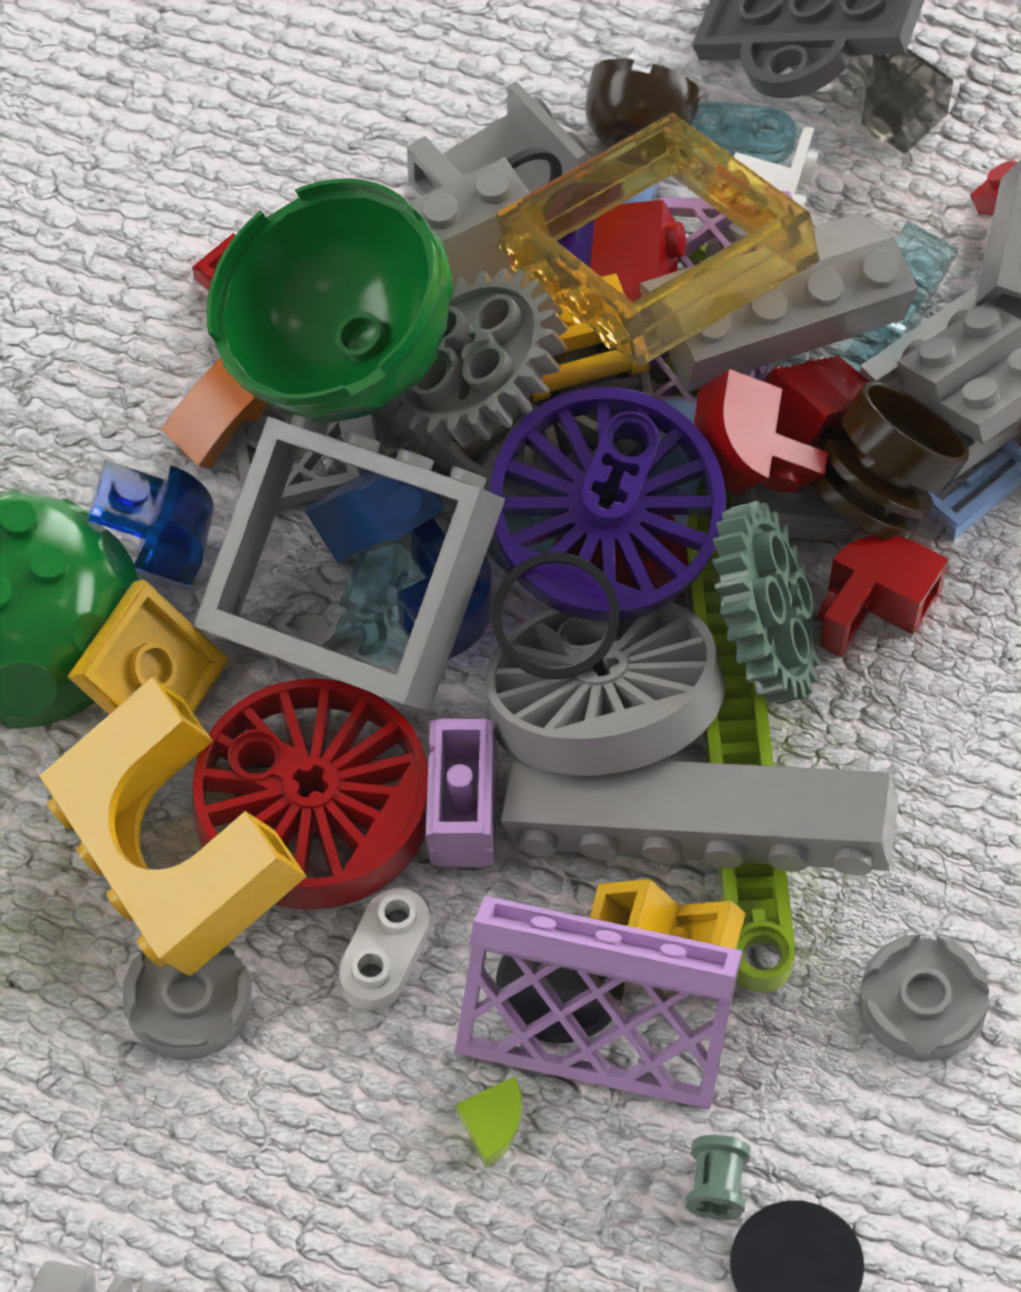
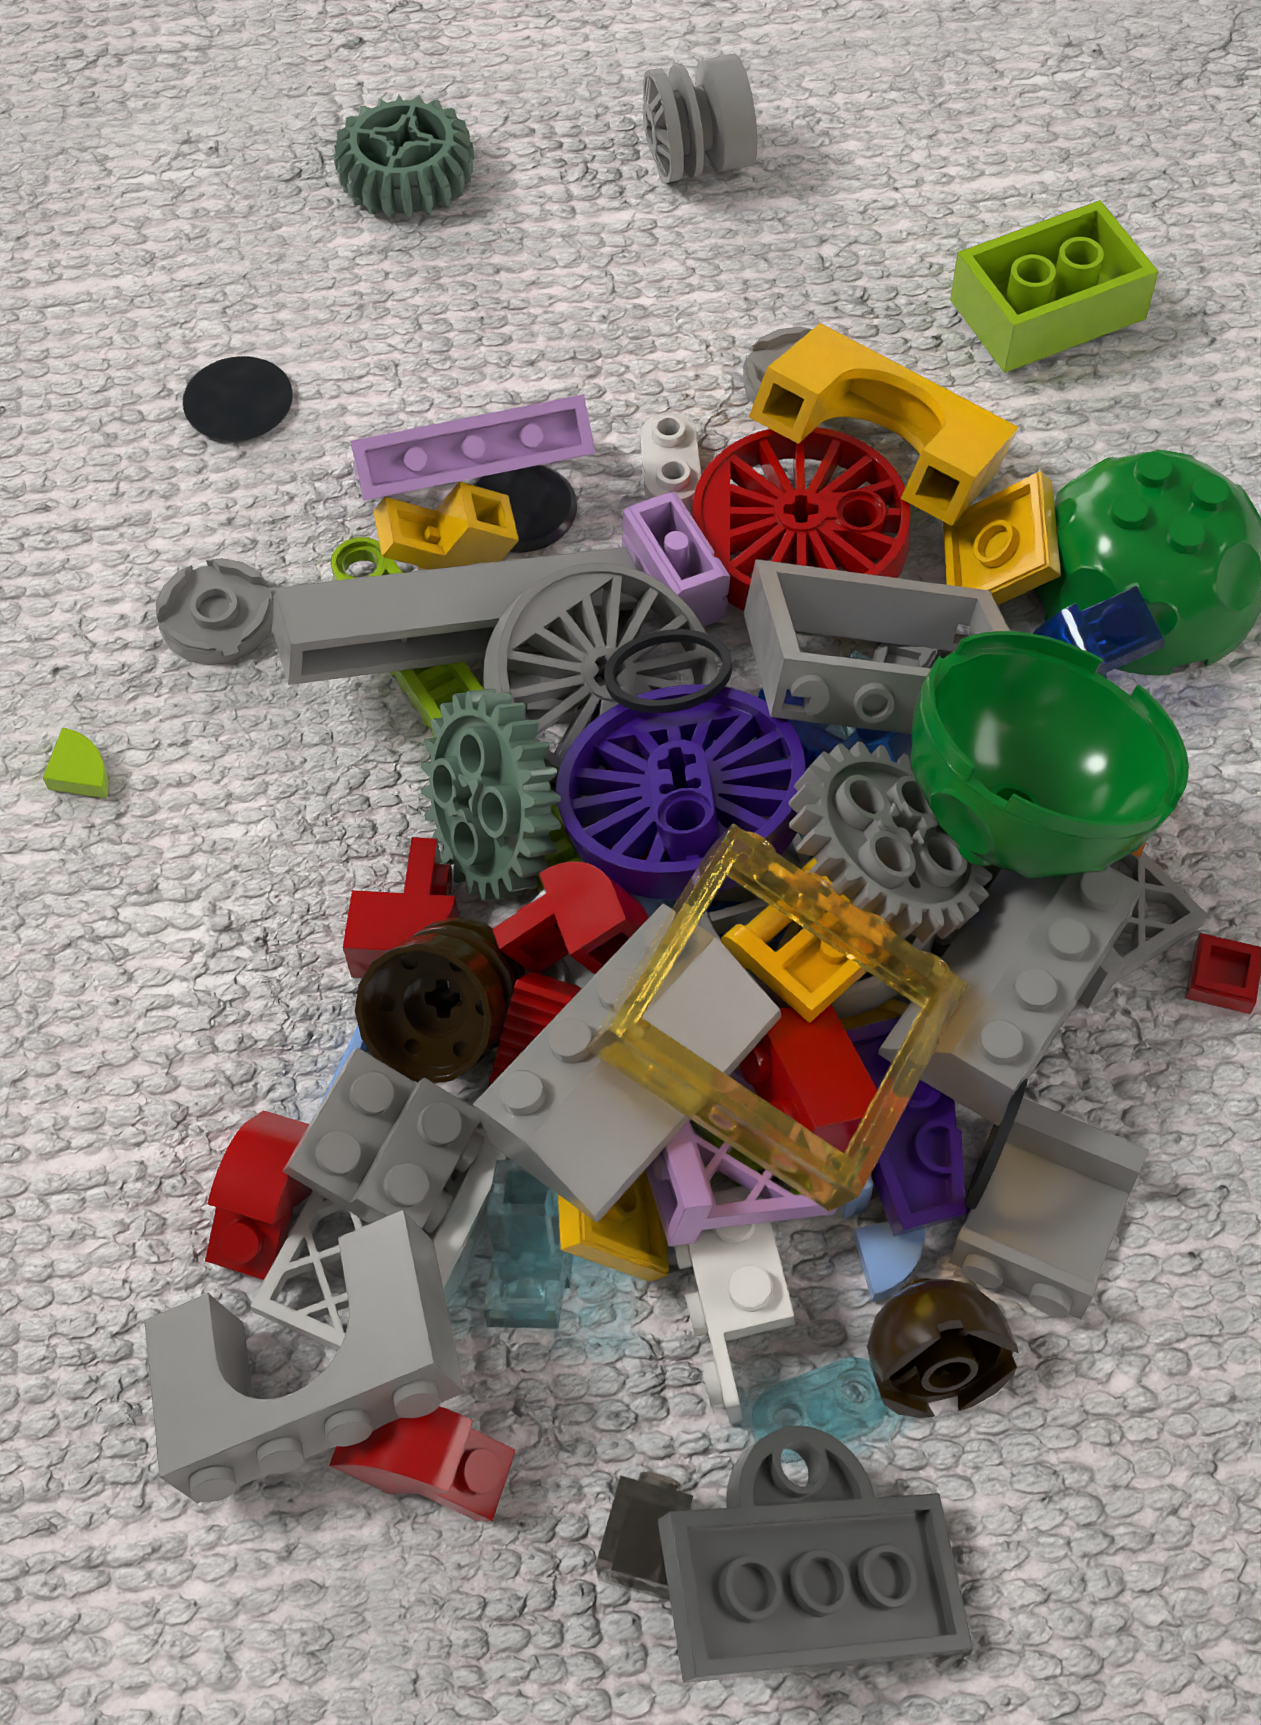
camera: 155 degrees right, 0 degrees up
(492, 1119) = (516, 384): lime tile -> none
(718, 1177) = (324, 419): sand green bush -> none

